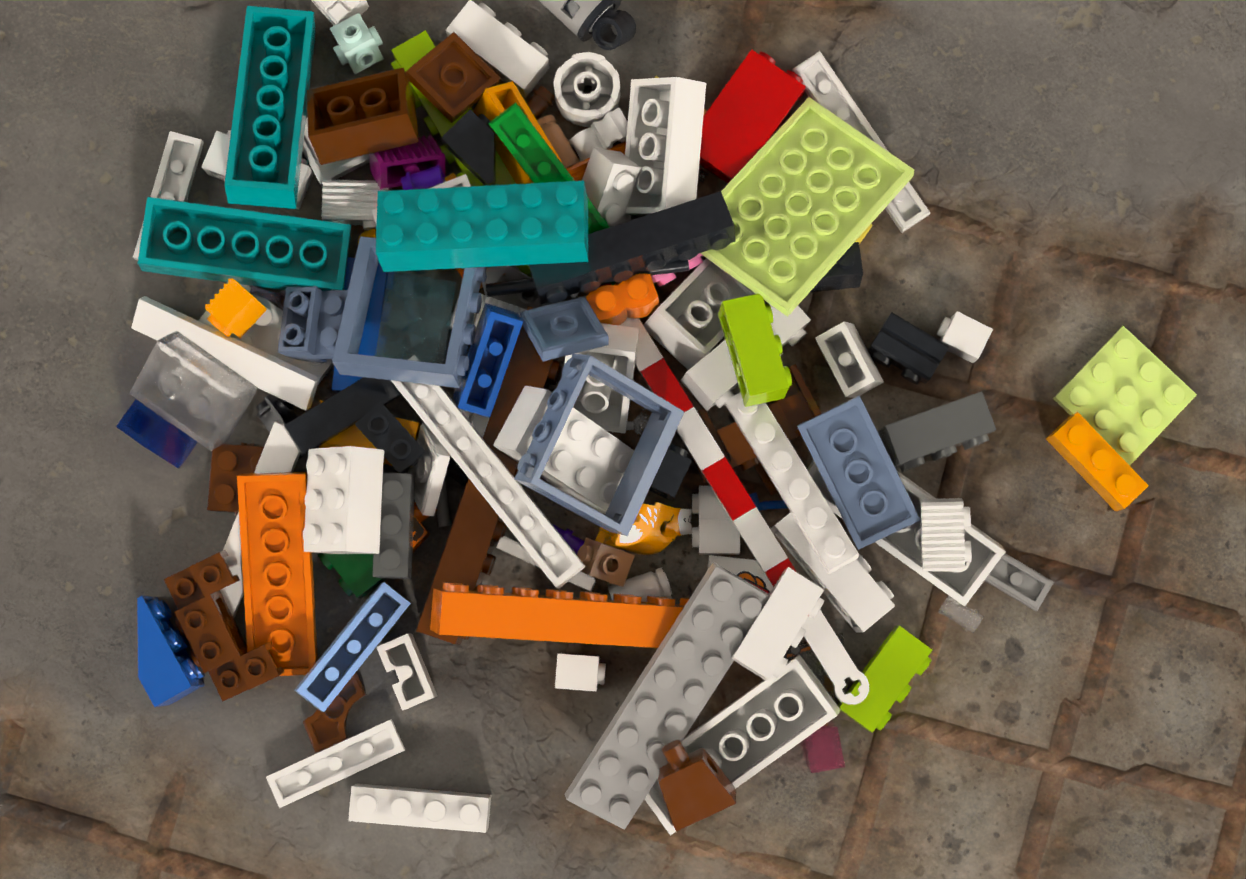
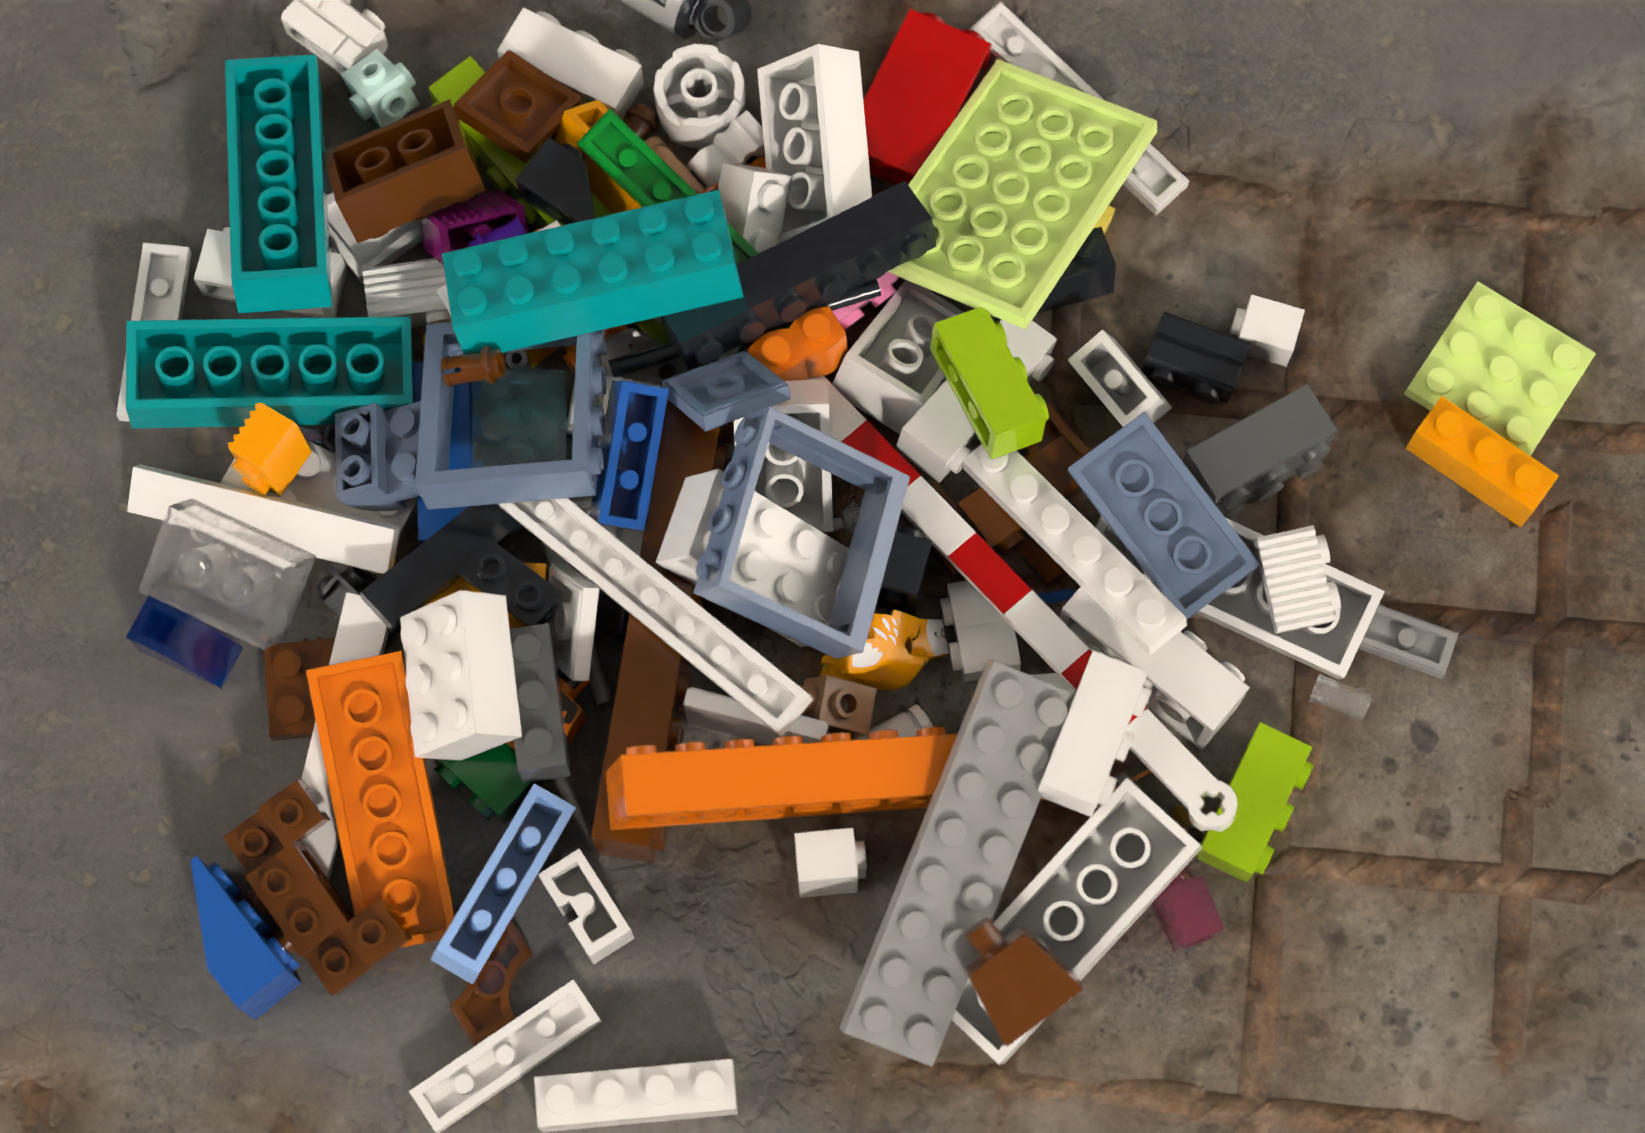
camera: 10 degrees left, 10 degrees down
(388, 279) = (475, 367): none -> reddish brown pin

